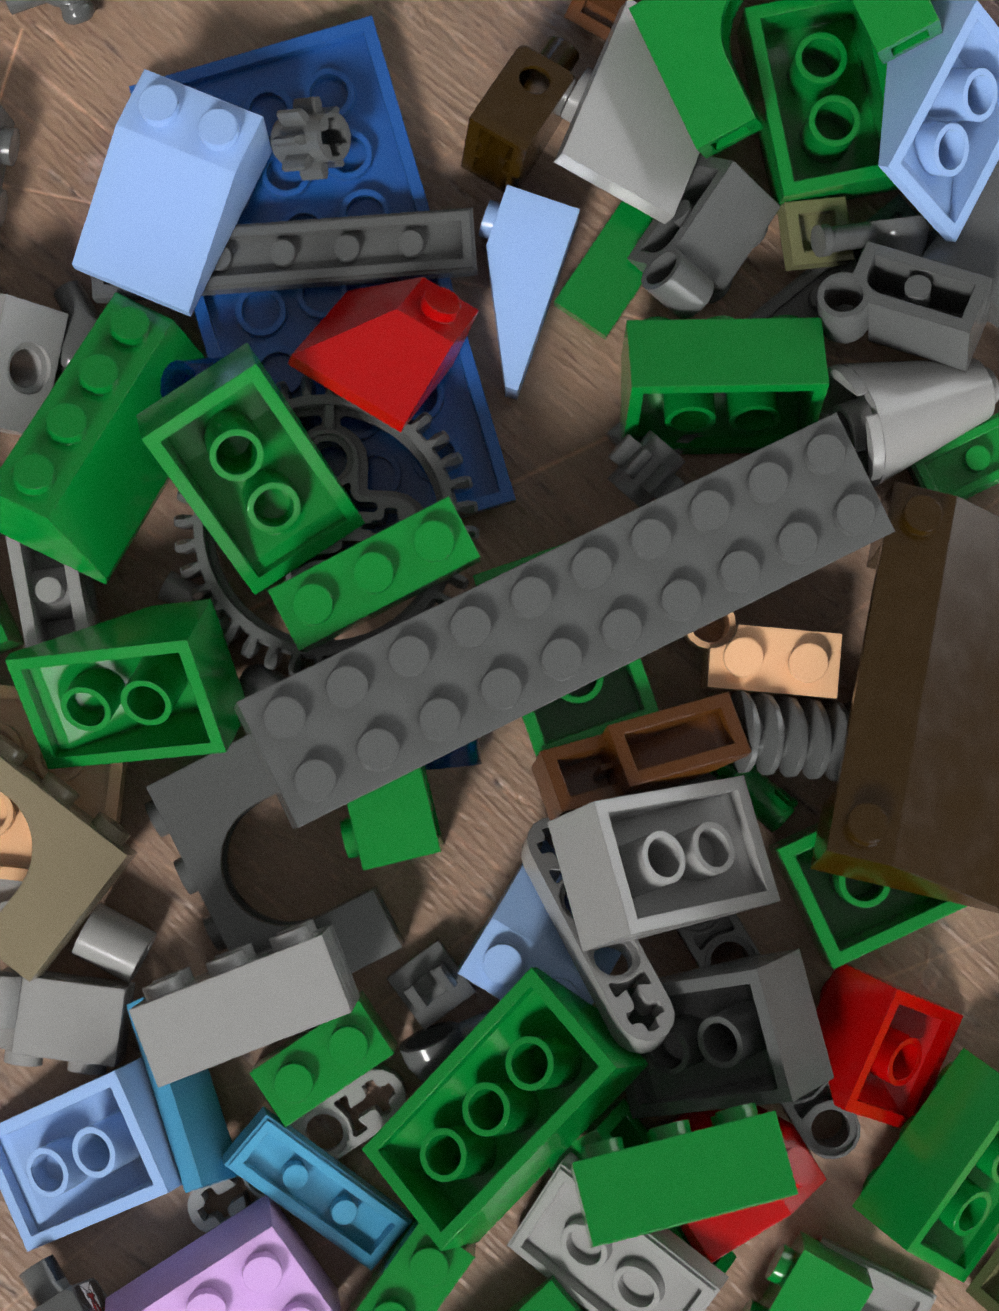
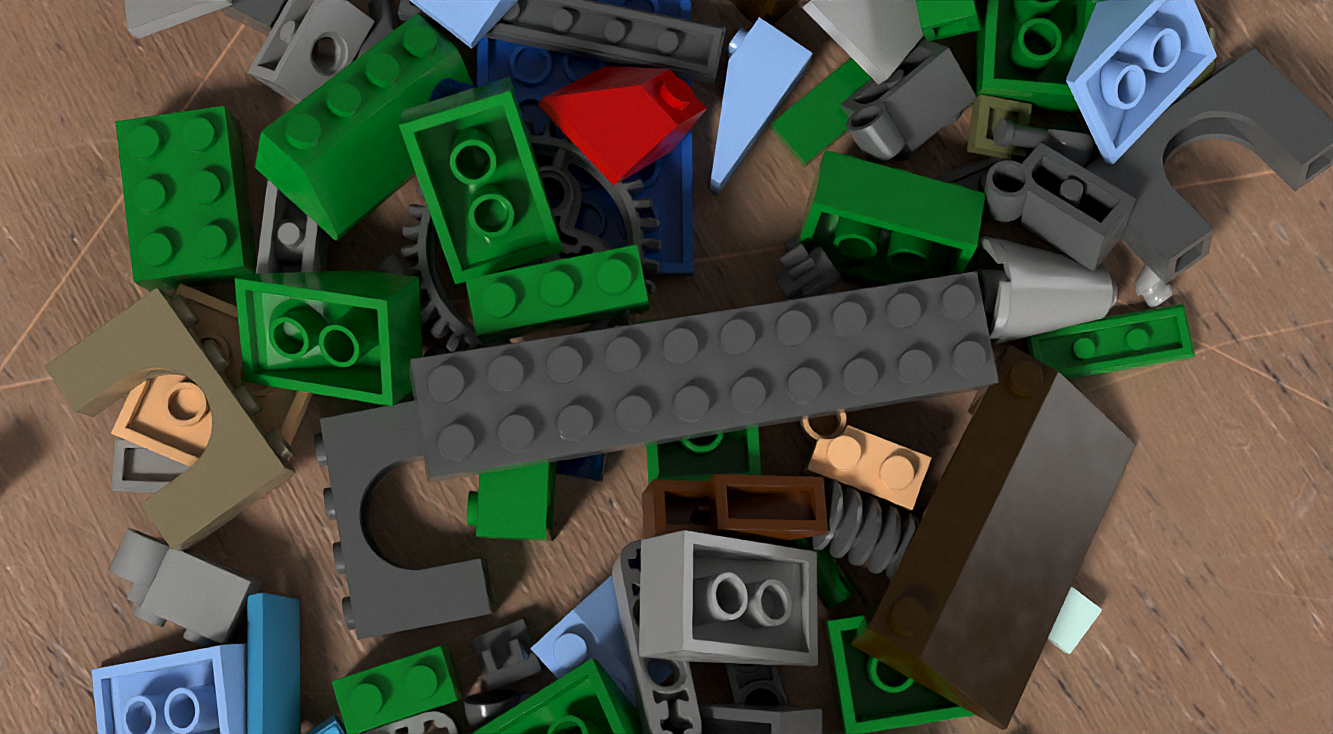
camera: 15 degrees right, 5 degrees down
(114, 943) = (254, 542): light grey piece -> none
(243, 1001) = (343, 615): light grey brick -> none

